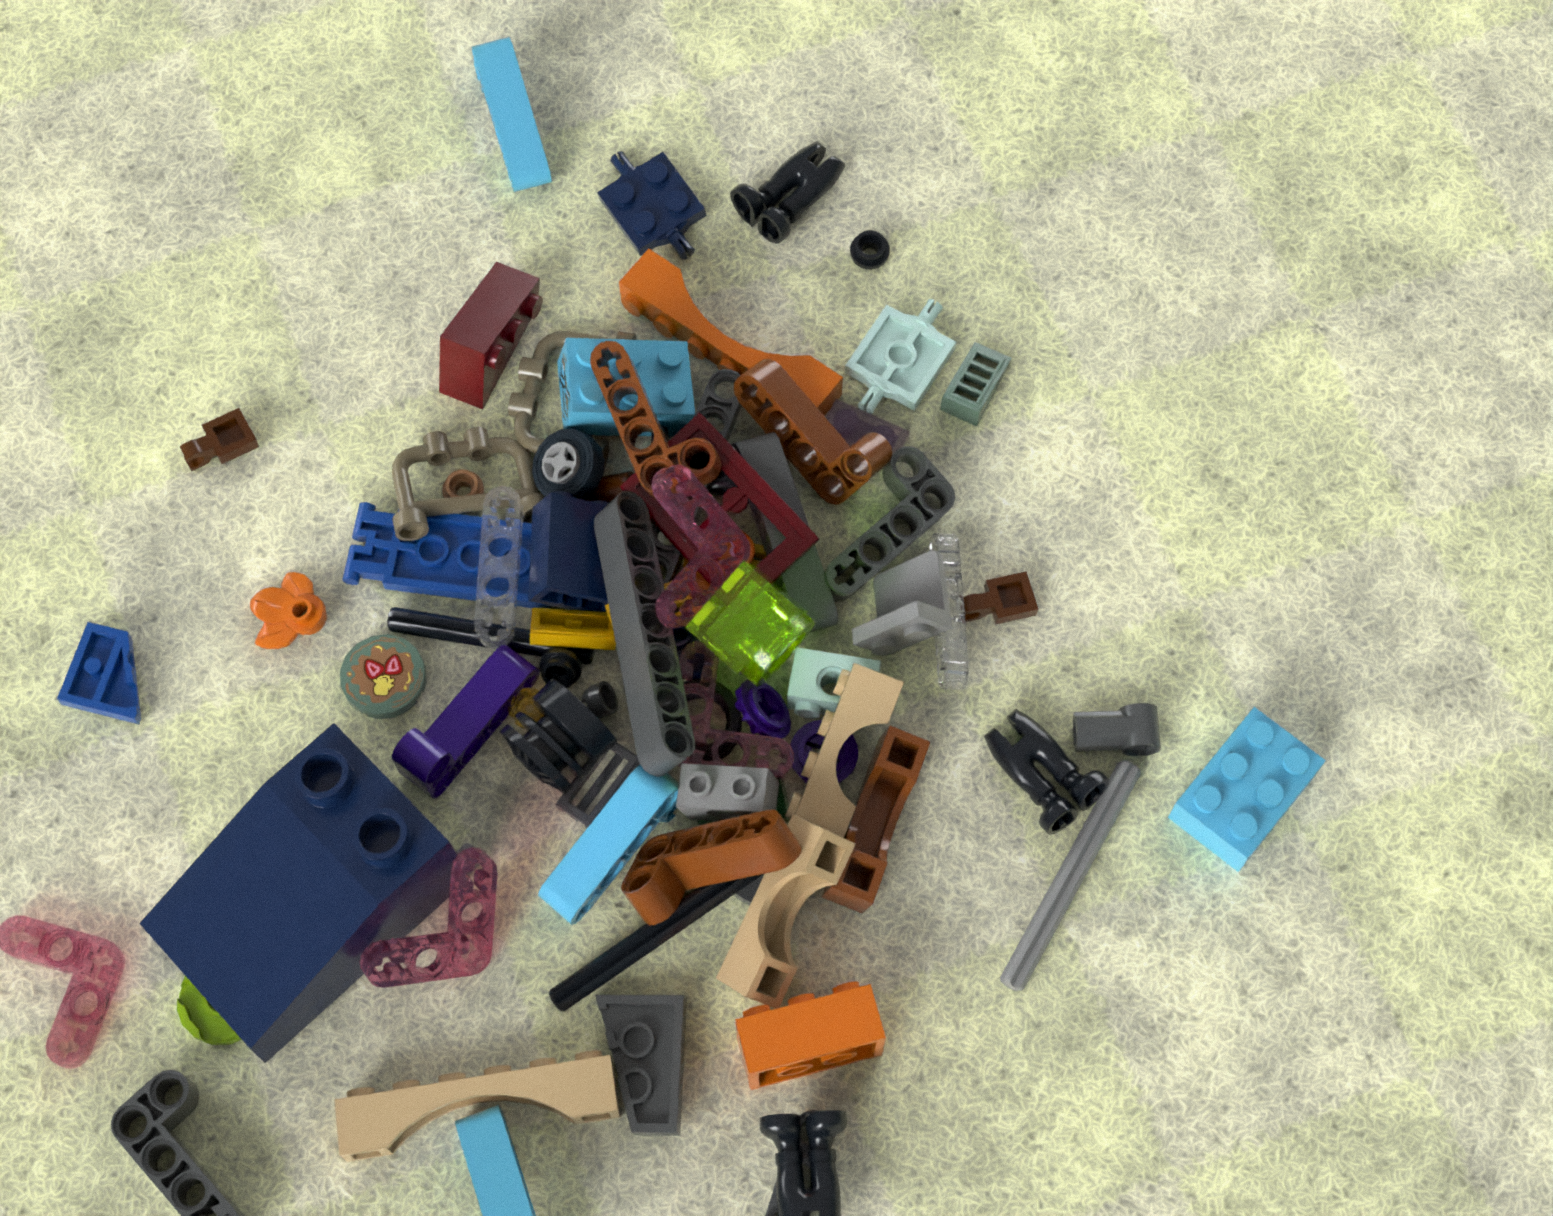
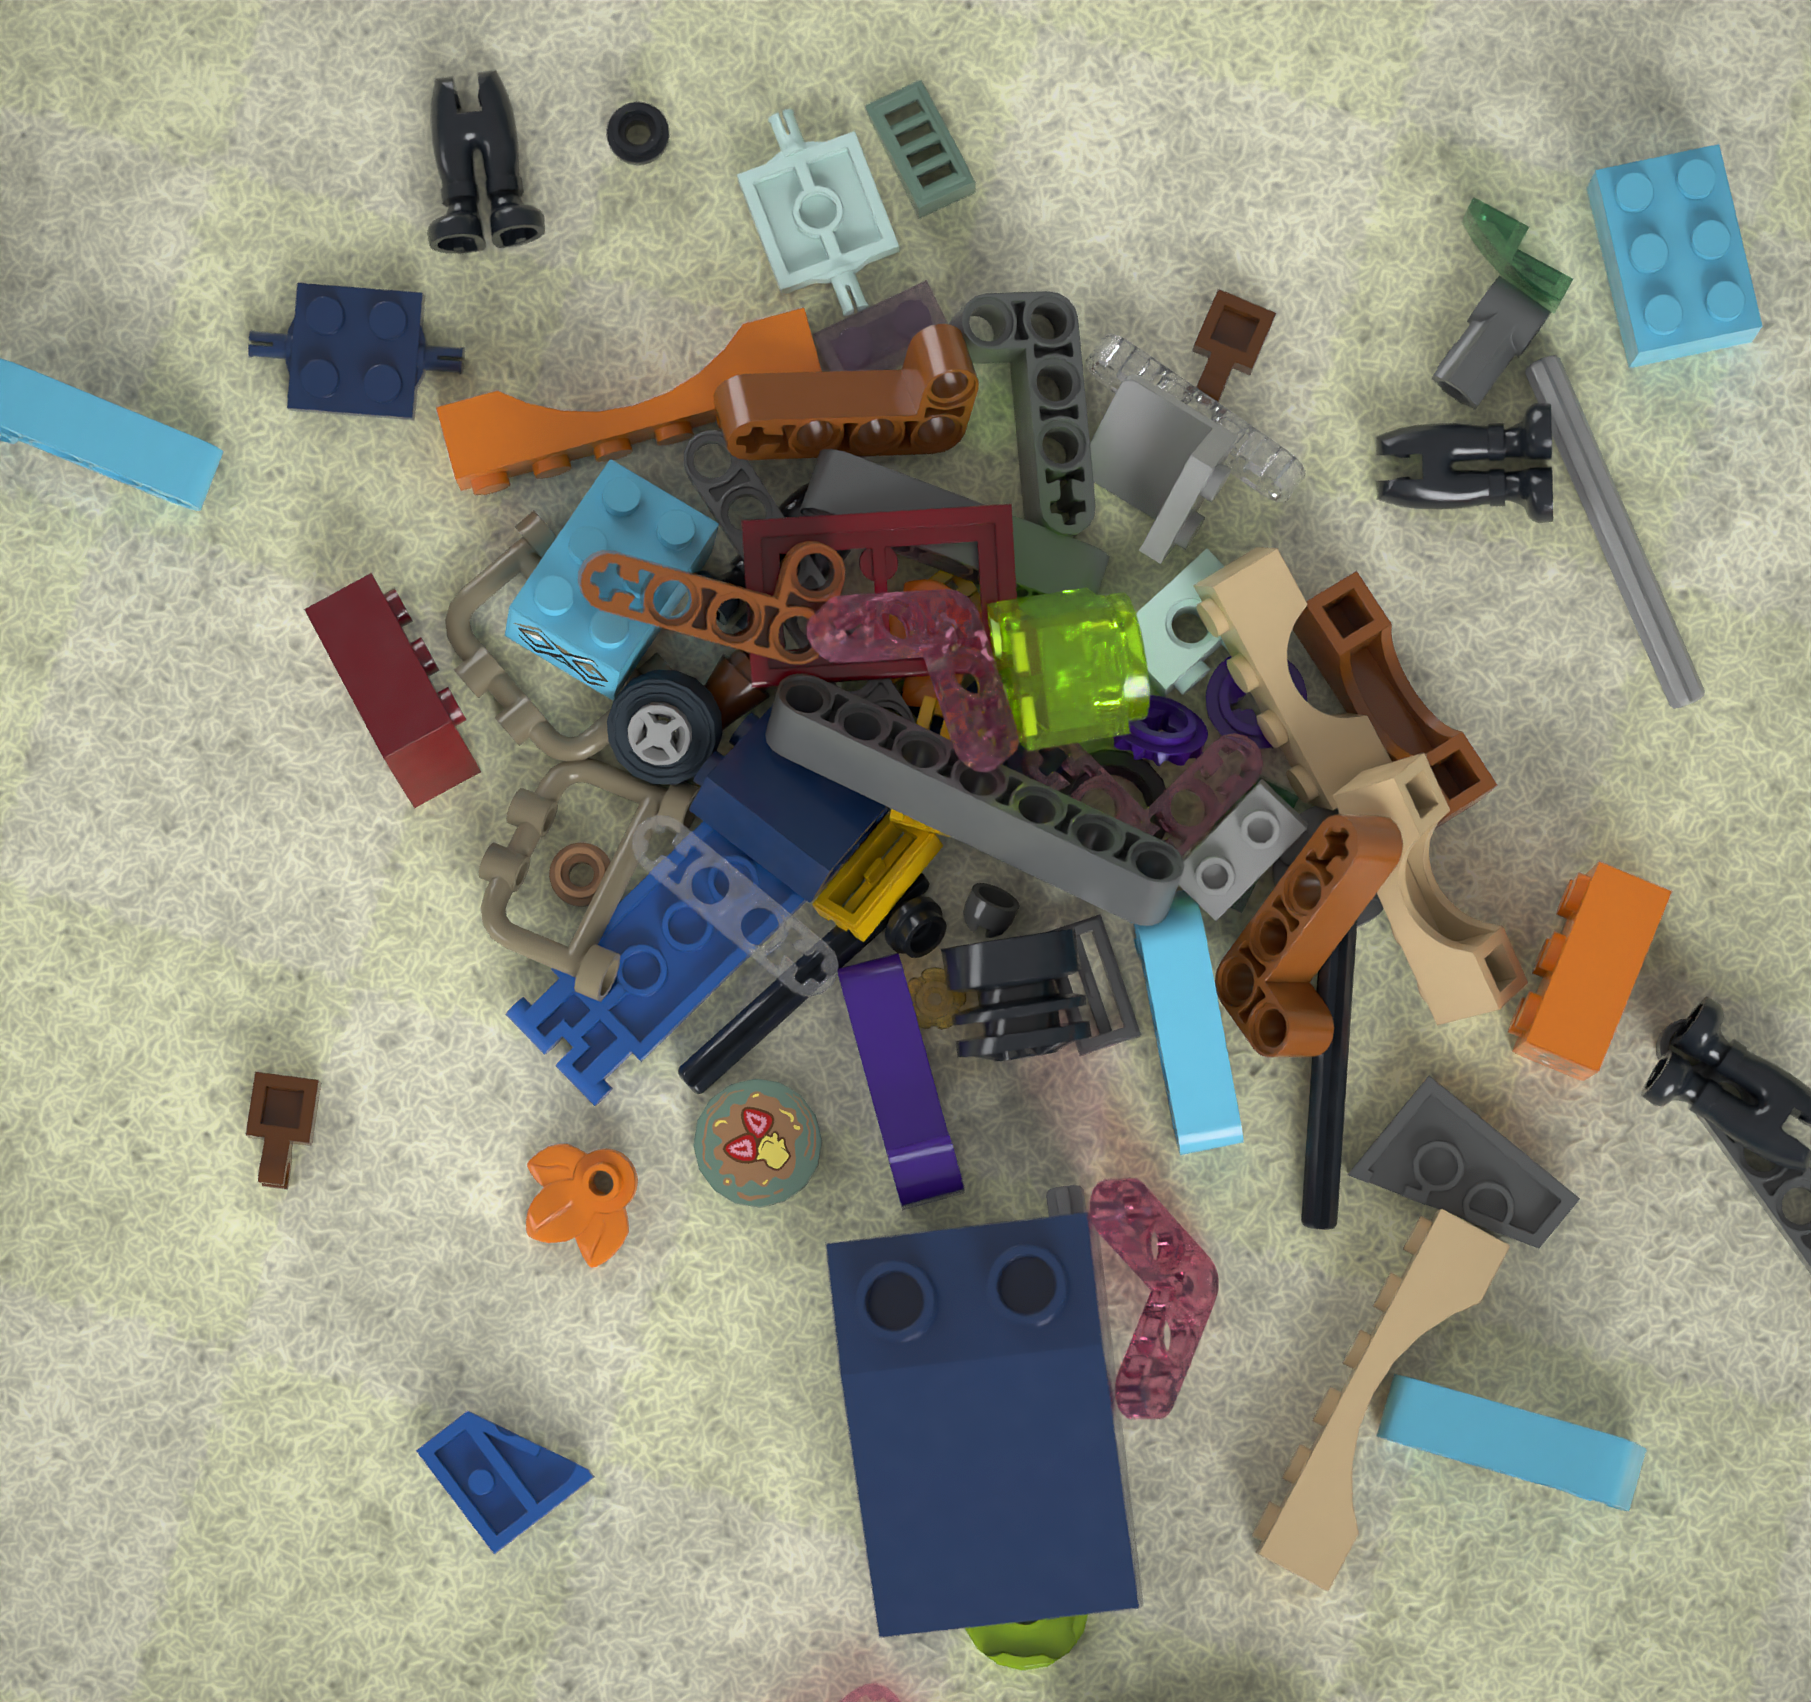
camera: 50 degrees left, 15 degrees up
(1175, 700) = (1499, 242): none -> clear green slope

